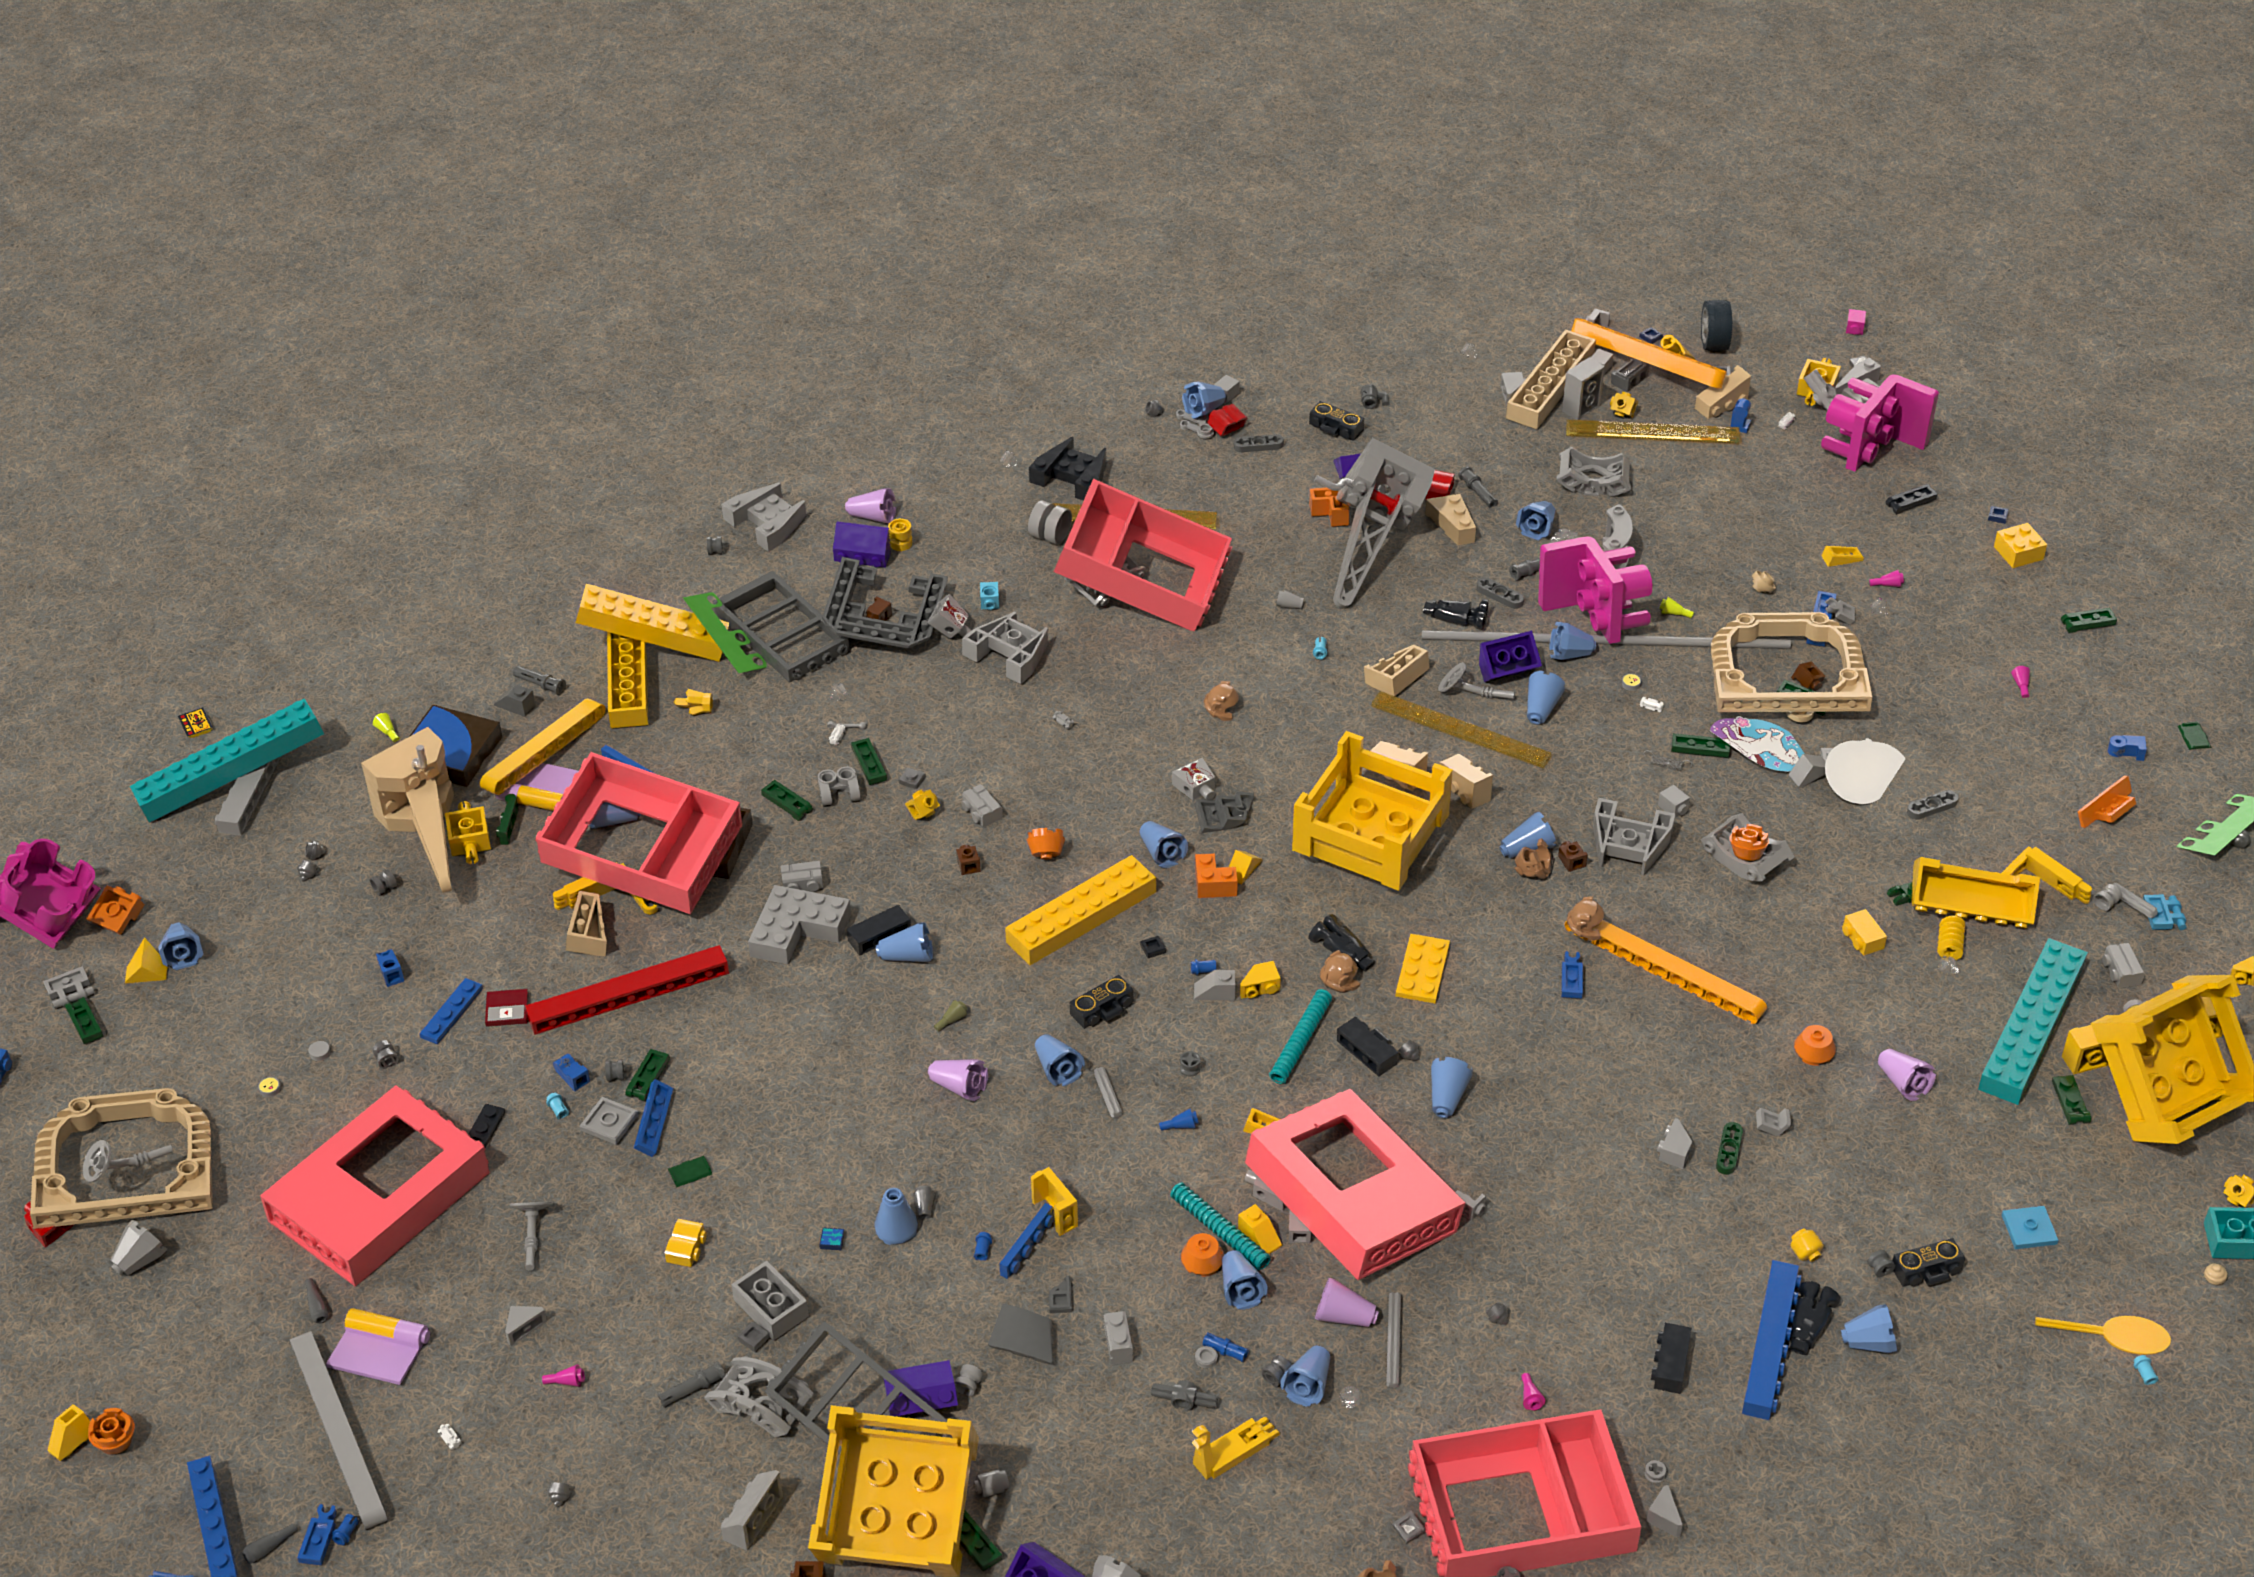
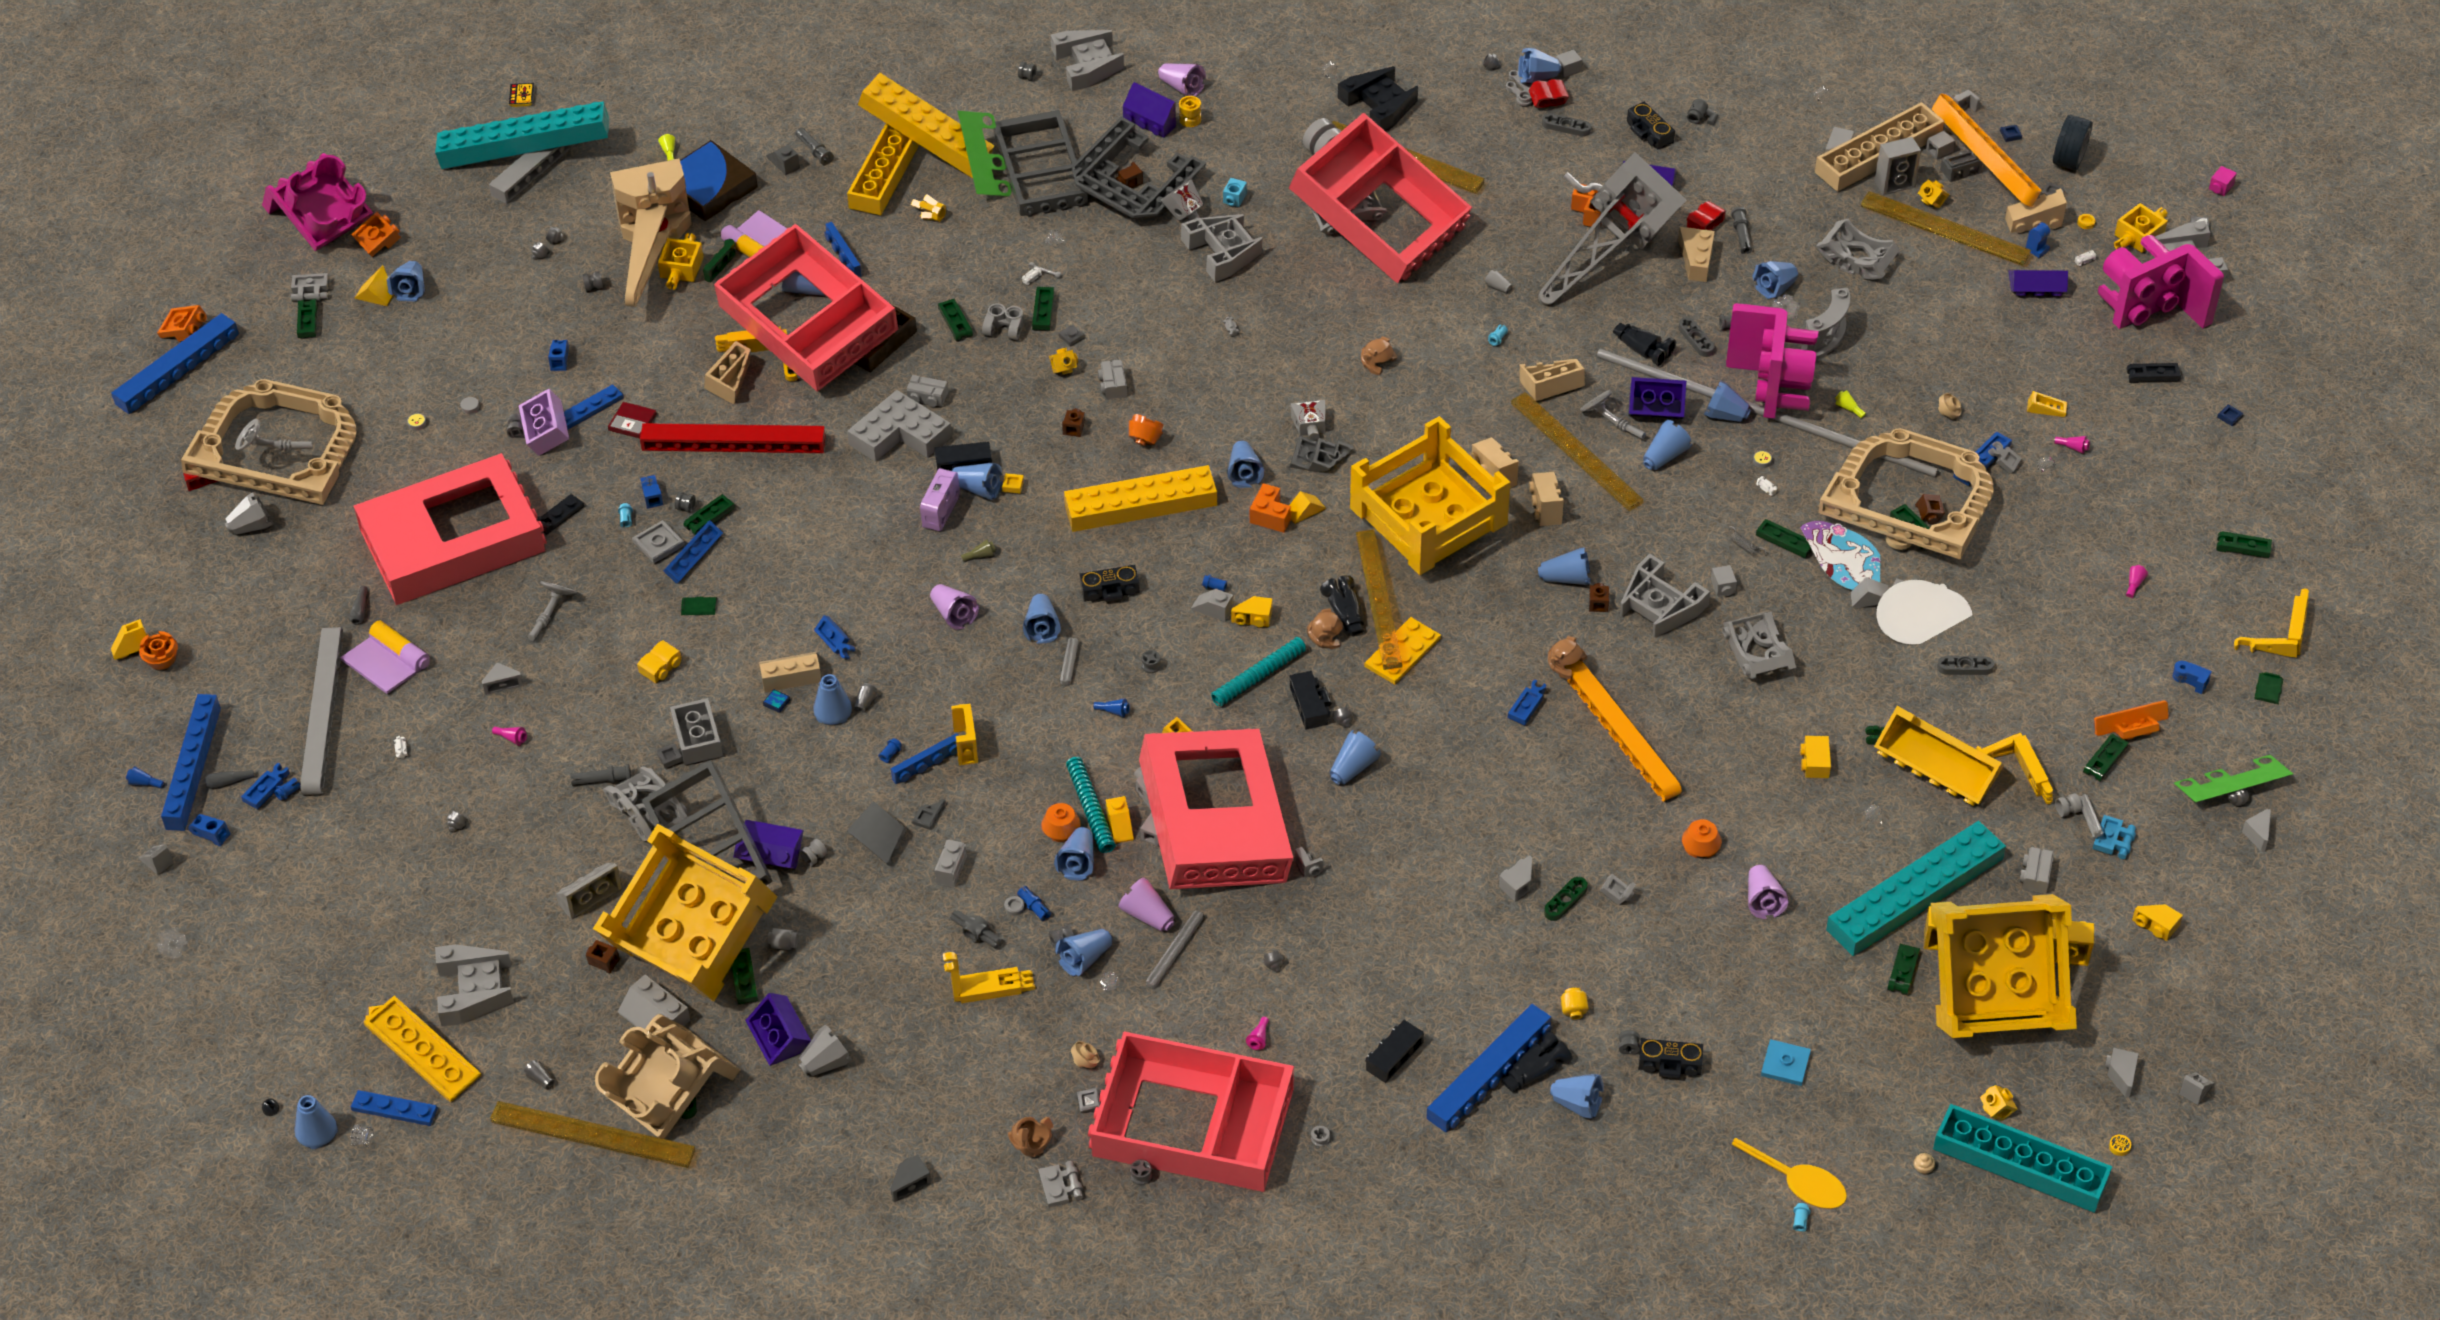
camera: 25 degrees right, 5 degrees up
(417, 1039) = (543, 422): none -> lavender brick
(542, 746) = (779, 206): yellow beam -> none
(829, 1203) = (790, 671): none -> tan slope
(854, 1152) = (833, 636): none -> blue plate
(884, 977) = (940, 499): none -> lavender axle
(943, 938) = (1012, 483): none -> yellow plate
(1153, 947) = (1184, 551): black tile -> none
(1374, 927) = (1379, 600): none -> clear yellow plate
(1376, 1482) = (1084, 1055): none -> tan plate
(1534, 862) = (1558, 591): medium nougat helmet -> none
(1665, 1514) = (1303, 1168): light grey slope -> none
(1671, 343) = (2019, 154): yellow panel -> none
(1749, 842) = (1759, 639): orange cone -> none
(1764, 452) = (2038, 281): none -> dark purple slope
(1765, 390) = (2086, 221): none -> yellow tile
(1823, 391) = (2132, 238): light grey piece -> none
(1951, 937) = (1893, 789): yellow piece -> none
(2020, 545) = (2226, 451): yellow brick -> none
(2107, 843) = (2106, 757): none -> dark green plate
(2185, 677) = (2281, 645): none -> yellow hinge

